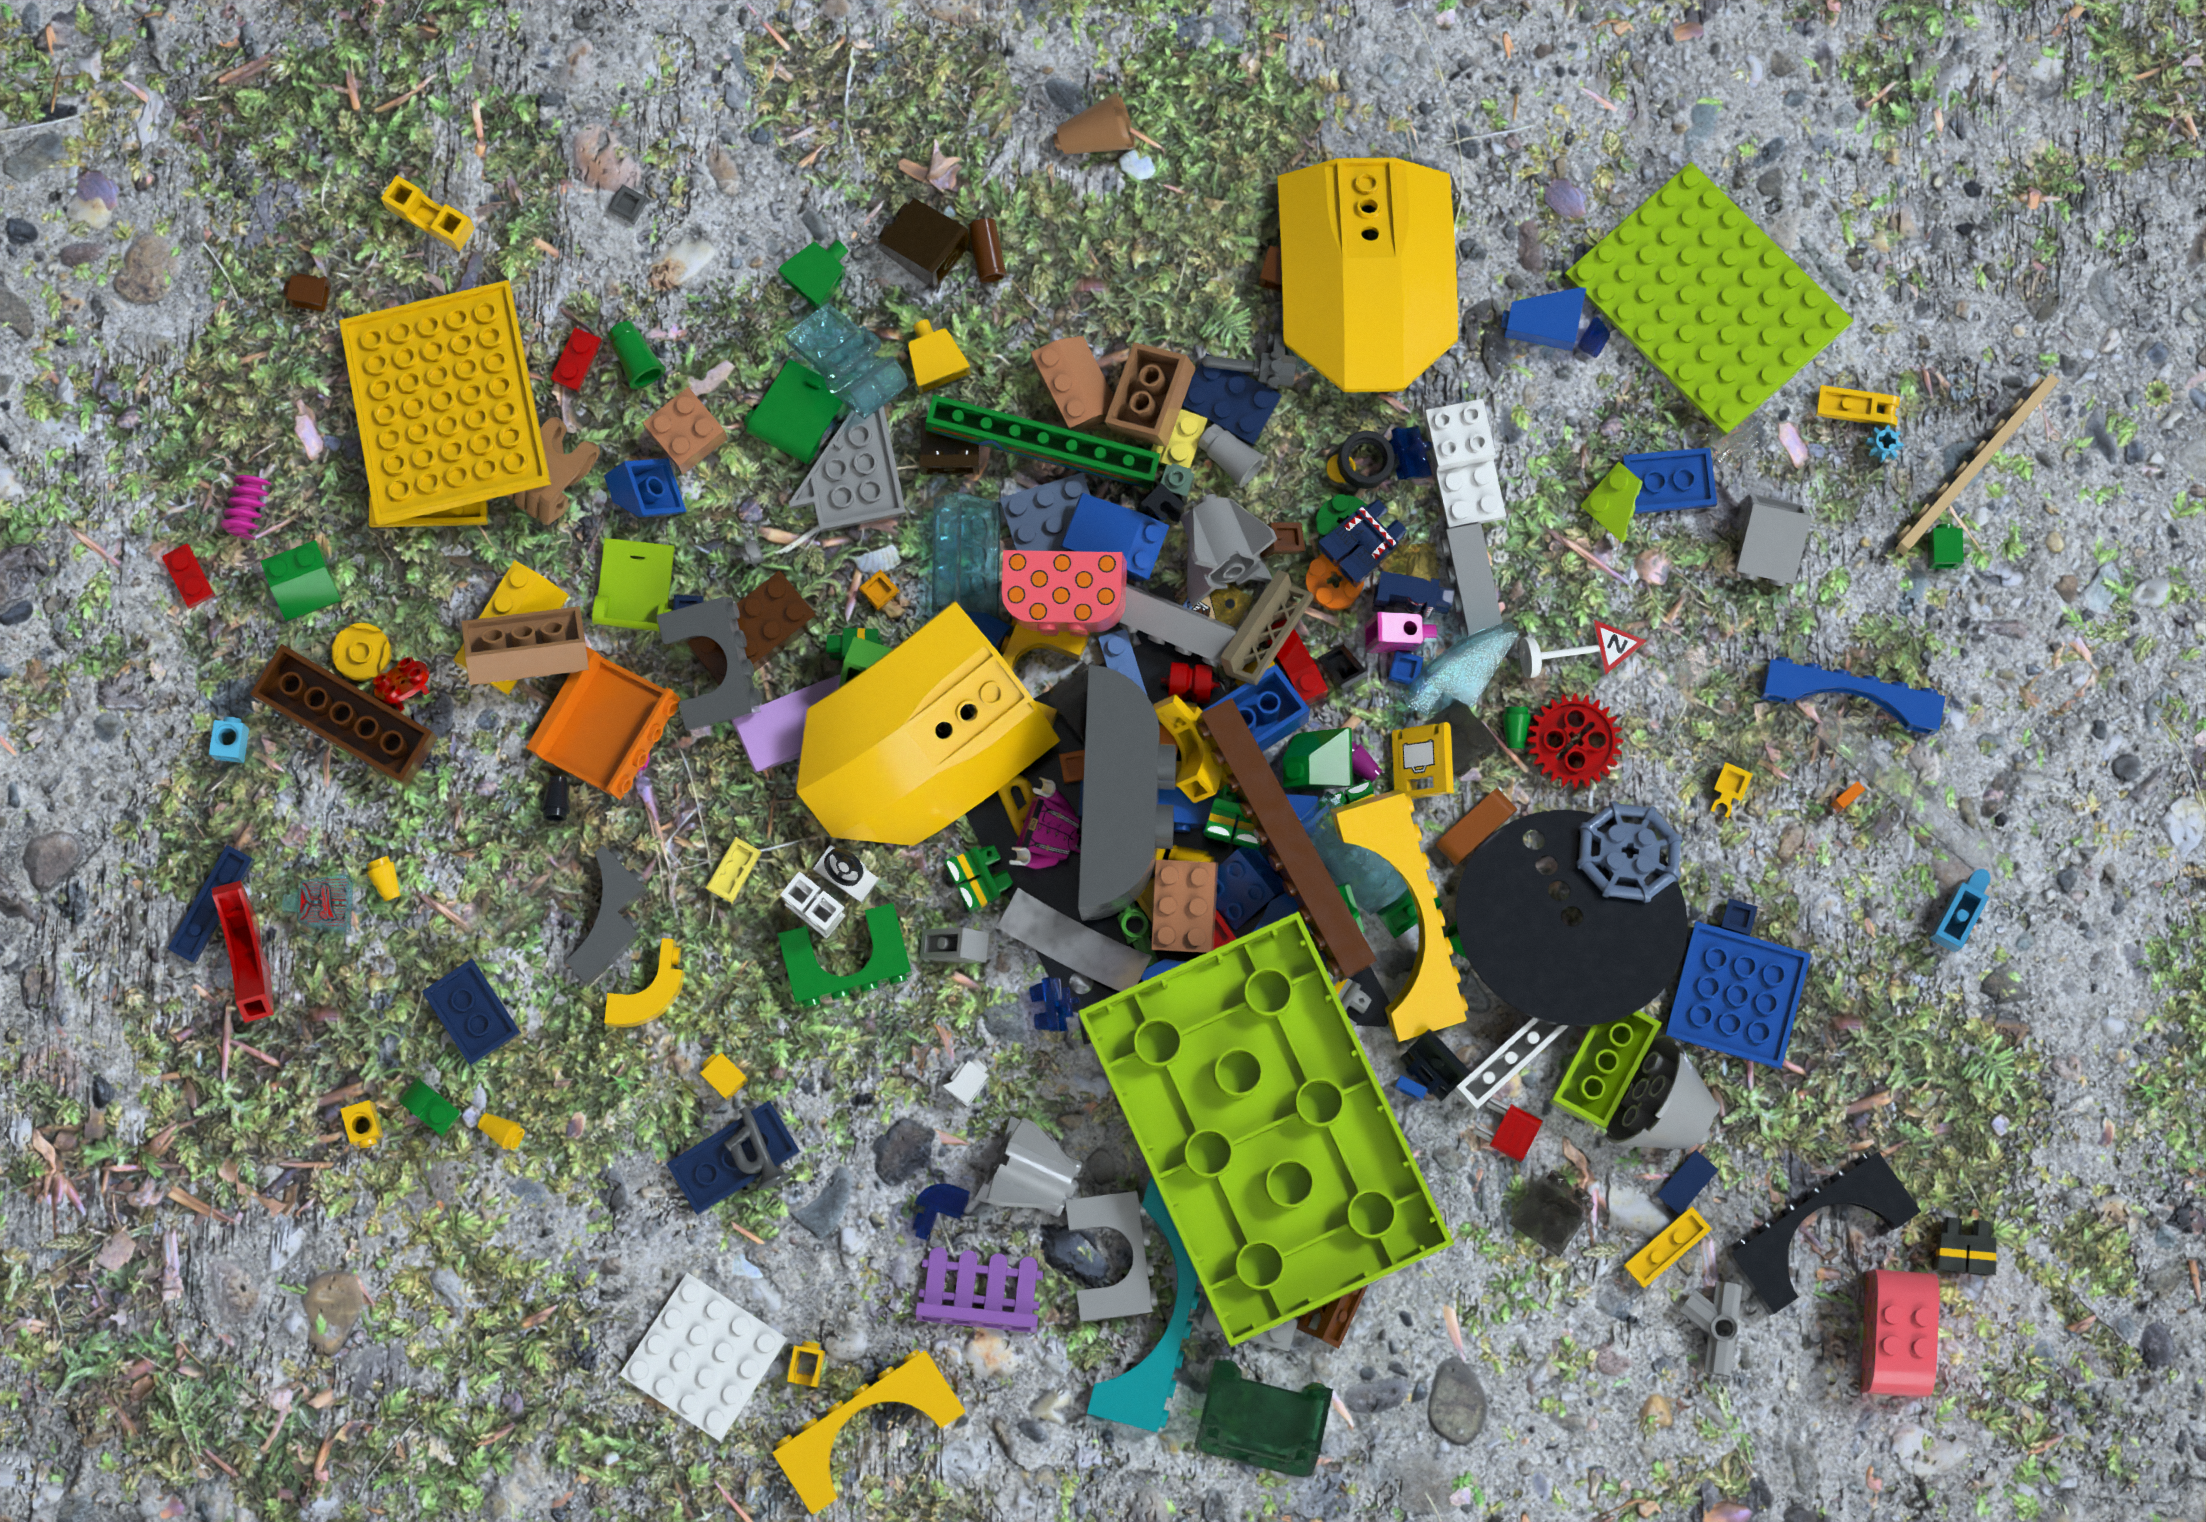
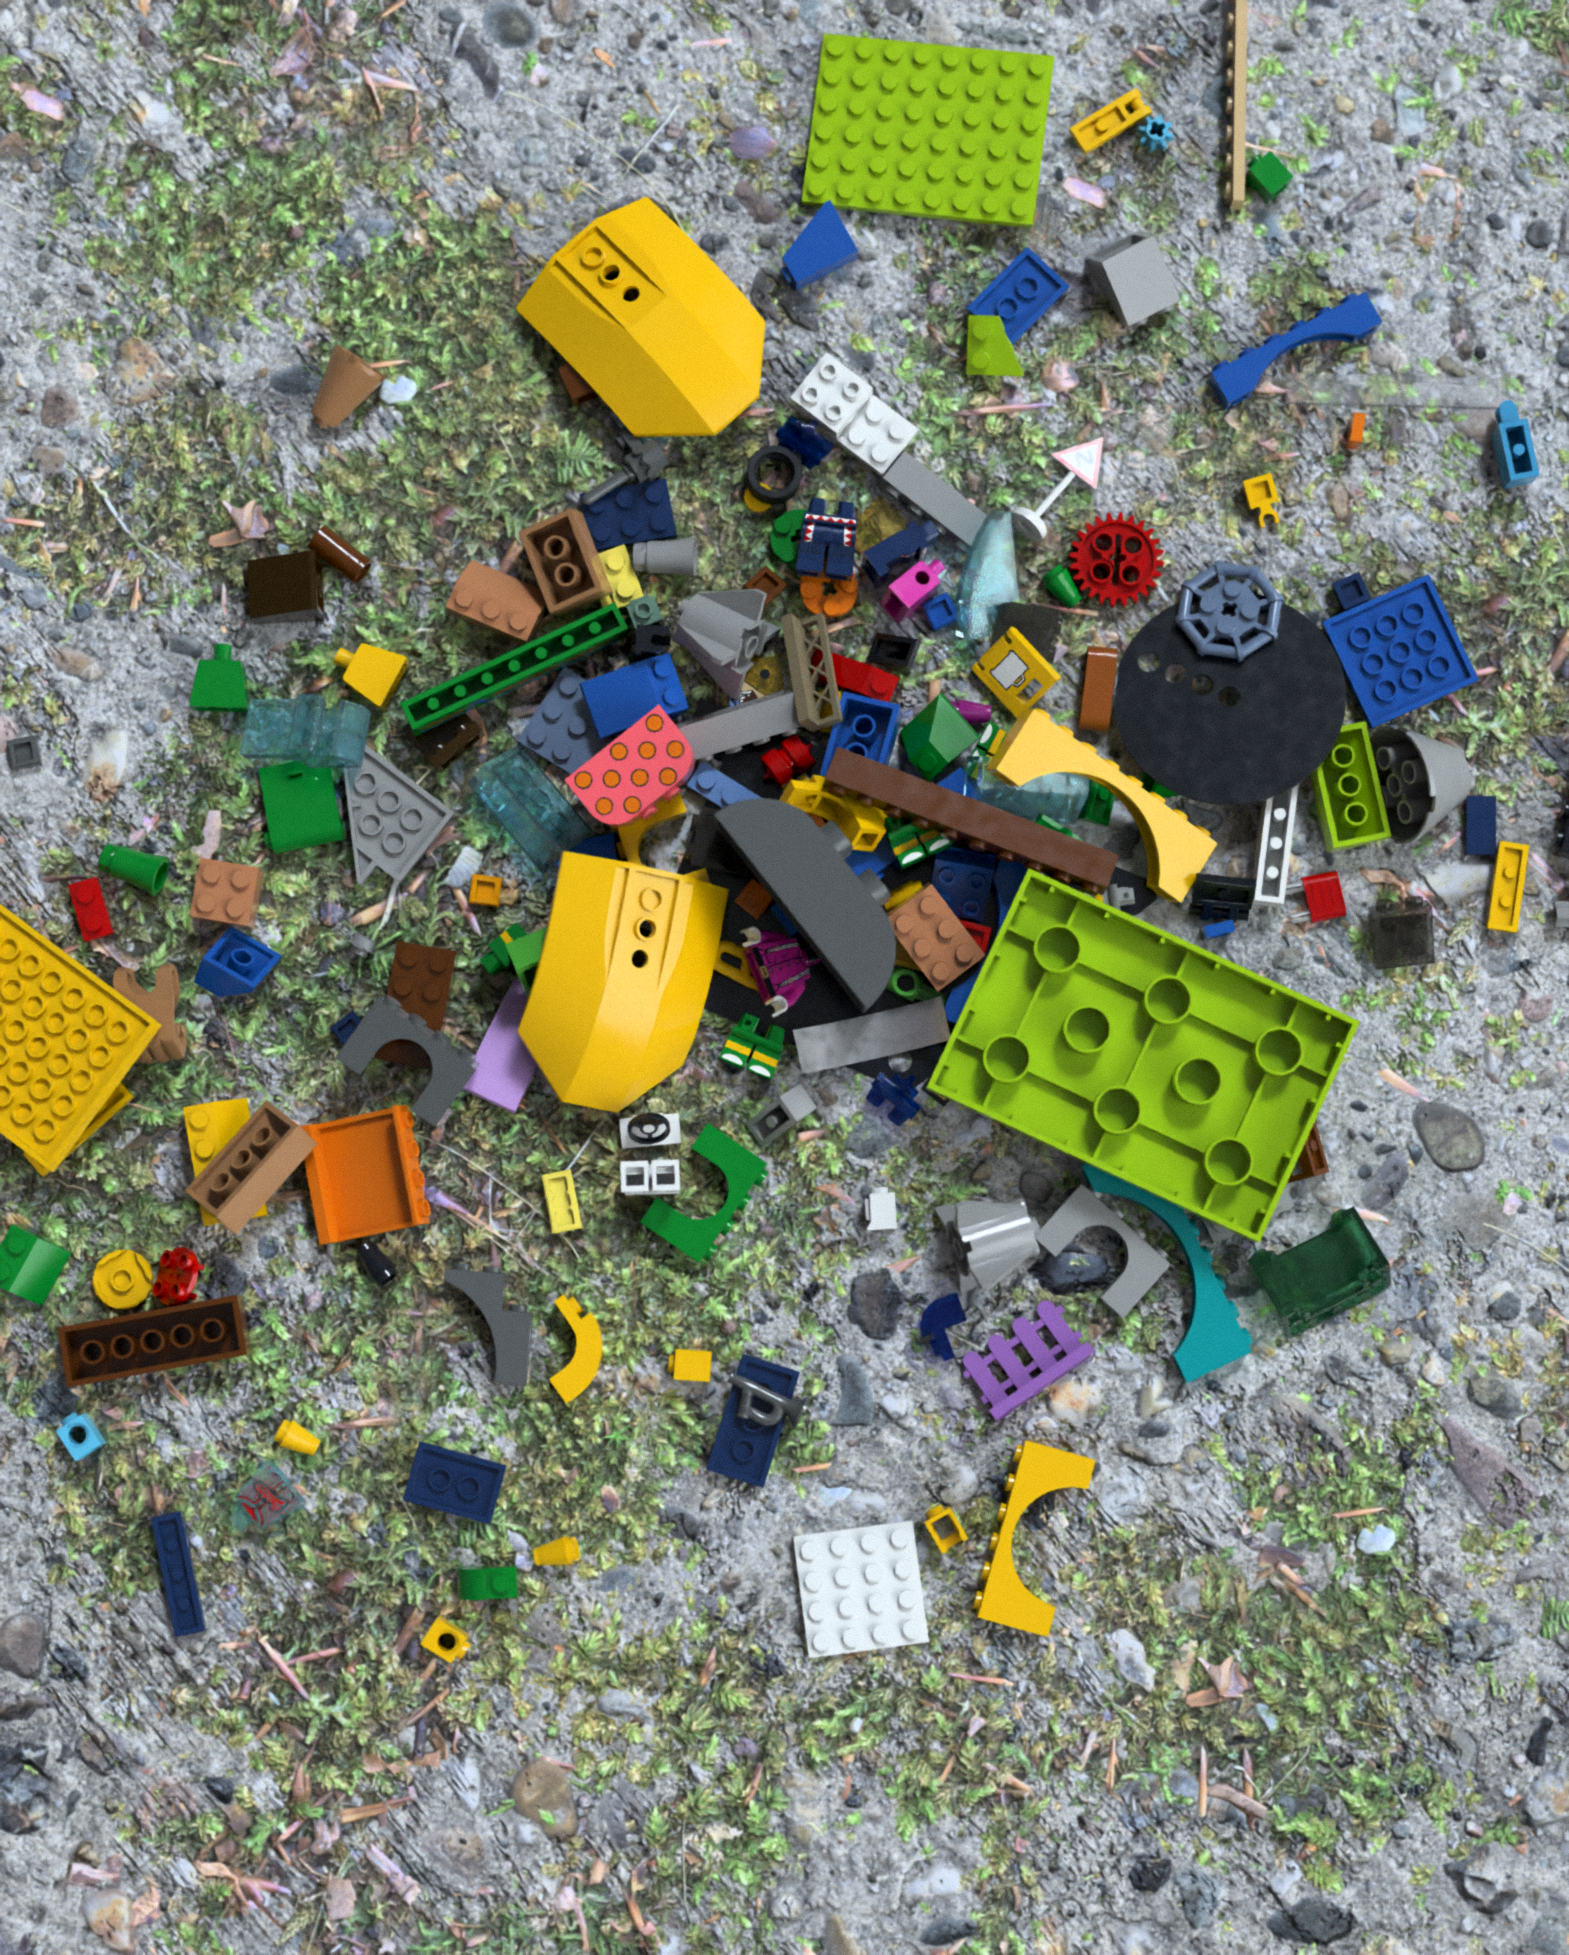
camera: 45 degrees left, 5 degrees up
(246, 956) = (240, 1588): red arch -> none
(634, 587) = (294, 1049): lime door -> none
(1594, 338) = (866, 234): clear blue slope -> none

